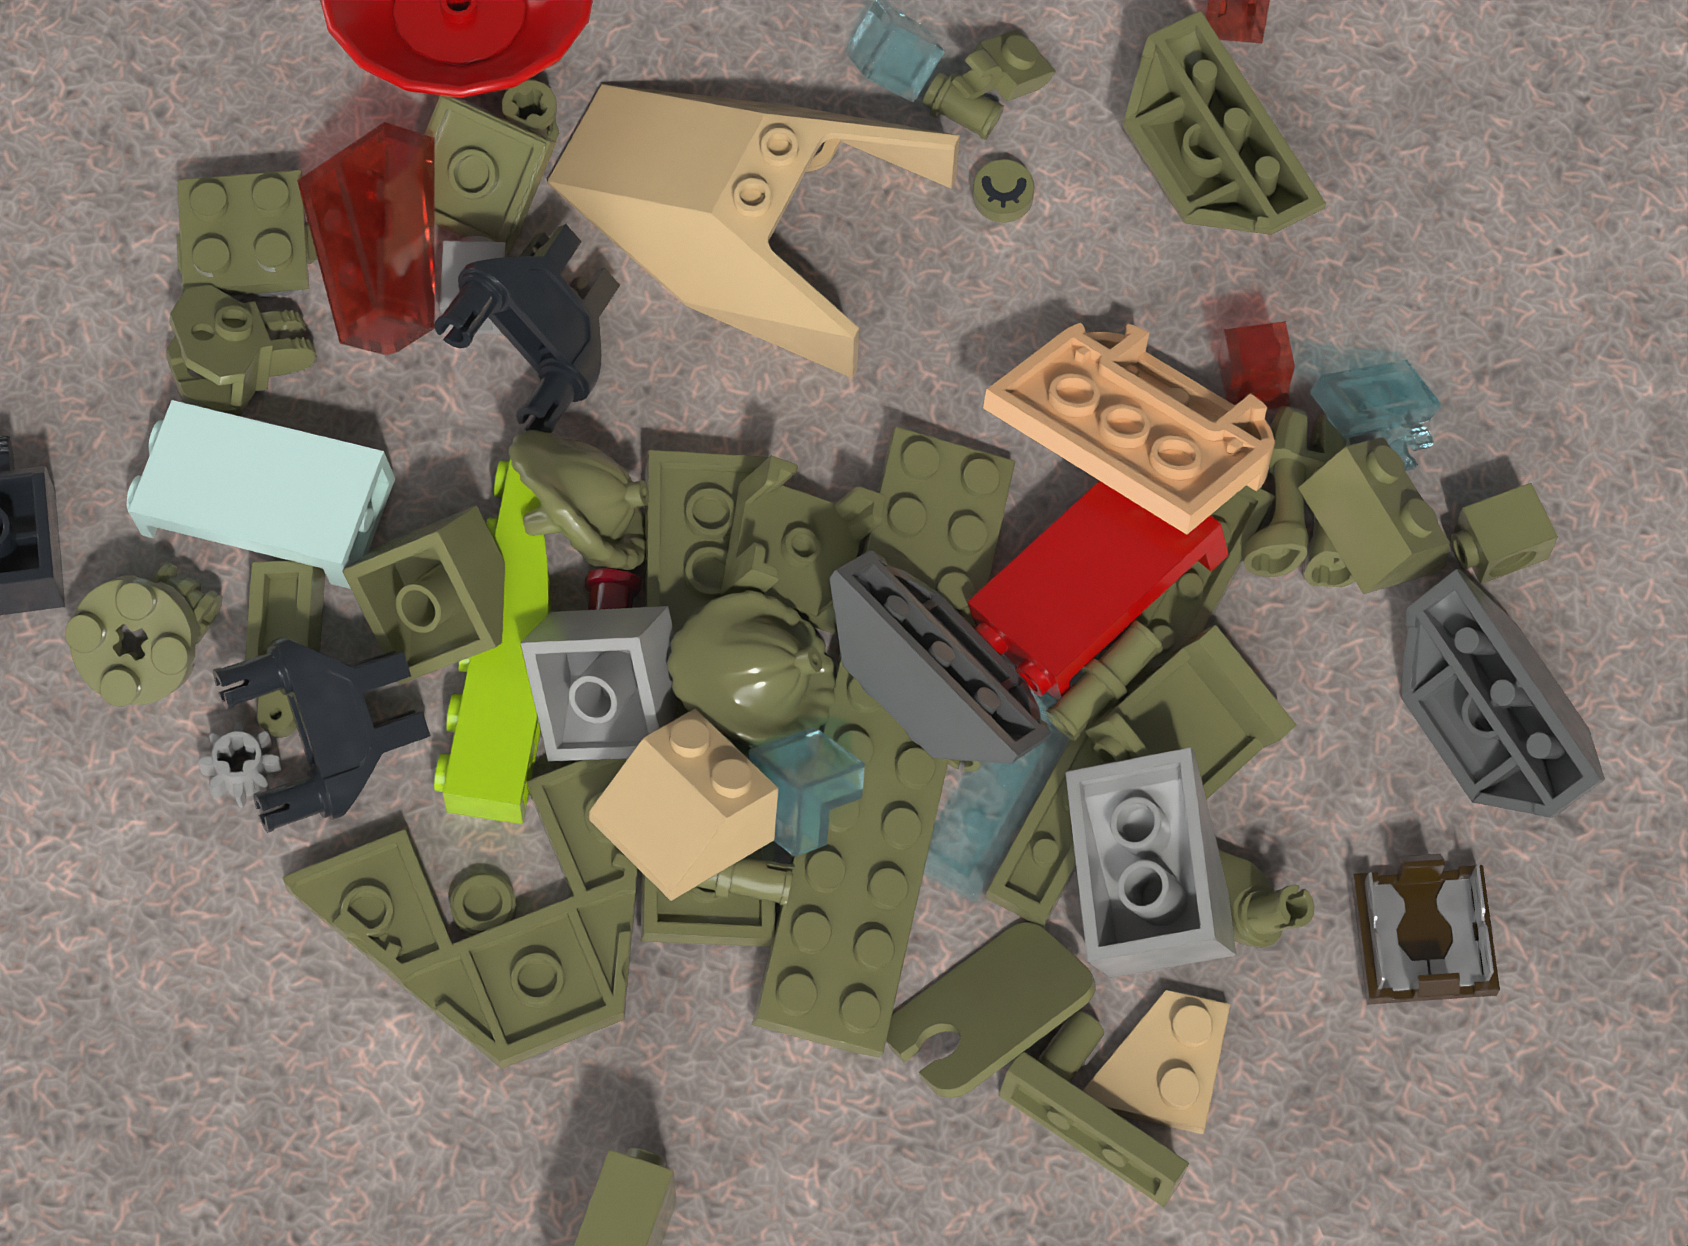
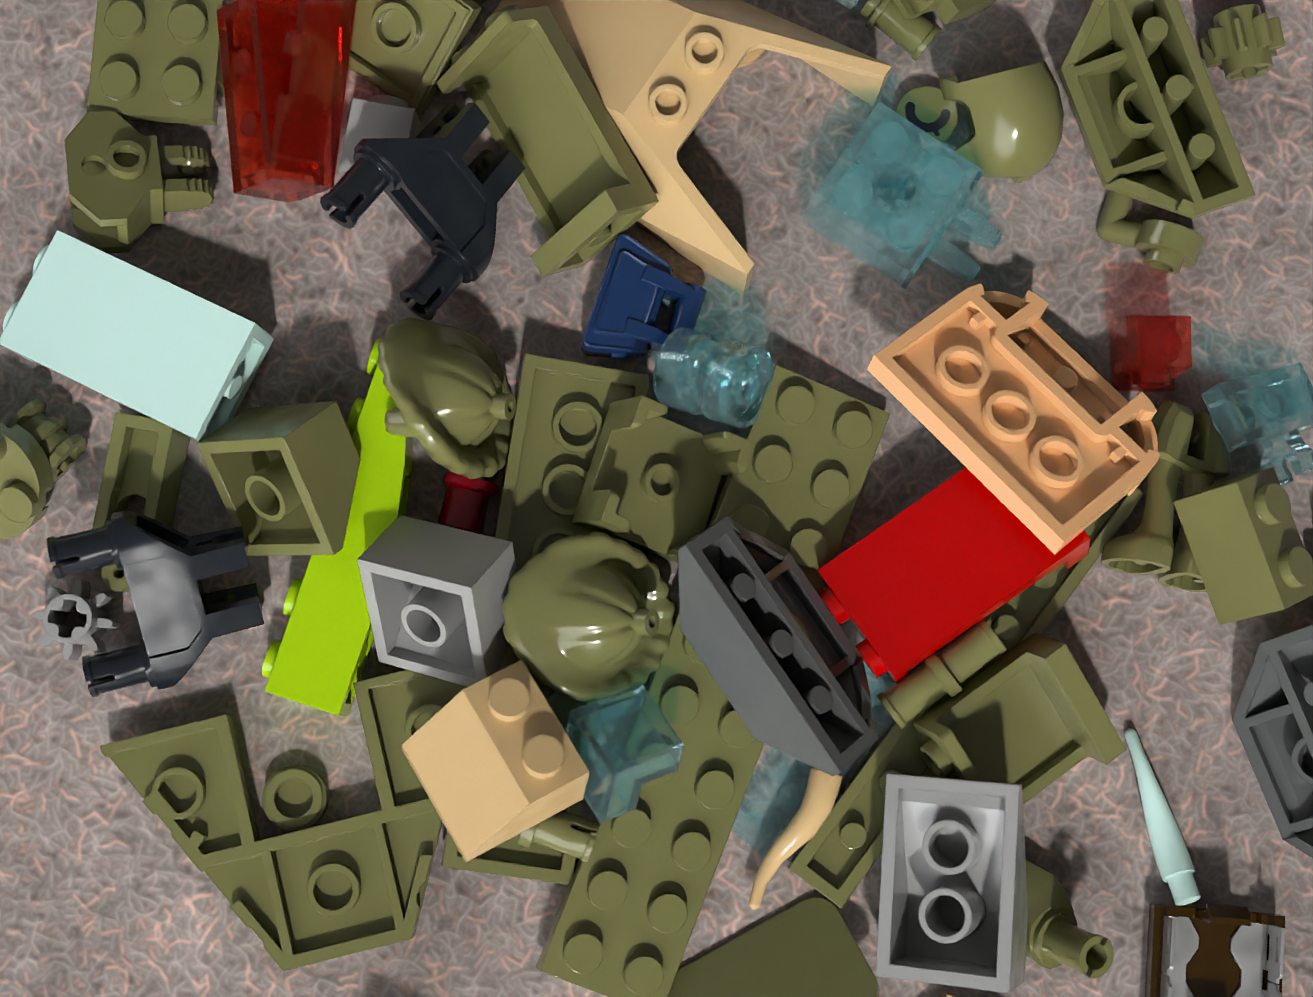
camera: 10 degrees right, 15 degrees up
(670, 268) = (558, 127): none -> olive panel
(742, 393) = (630, 302): none -> dark blue piece
(837, 443) = (713, 376): none -> clear light blue wheel
(1003, 829) = (814, 810): none -> tan animal
(1018, 258) = (900, 236): none -> clear light blue hinge
(1084, 173) = (1011, 120): none -> olive piece
(1251, 266) = (1163, 243): none -> olive plate
(1296, 77) = (1242, 42): none -> olive gear
(1352, 810) = (1163, 832): none -> light aqua animal

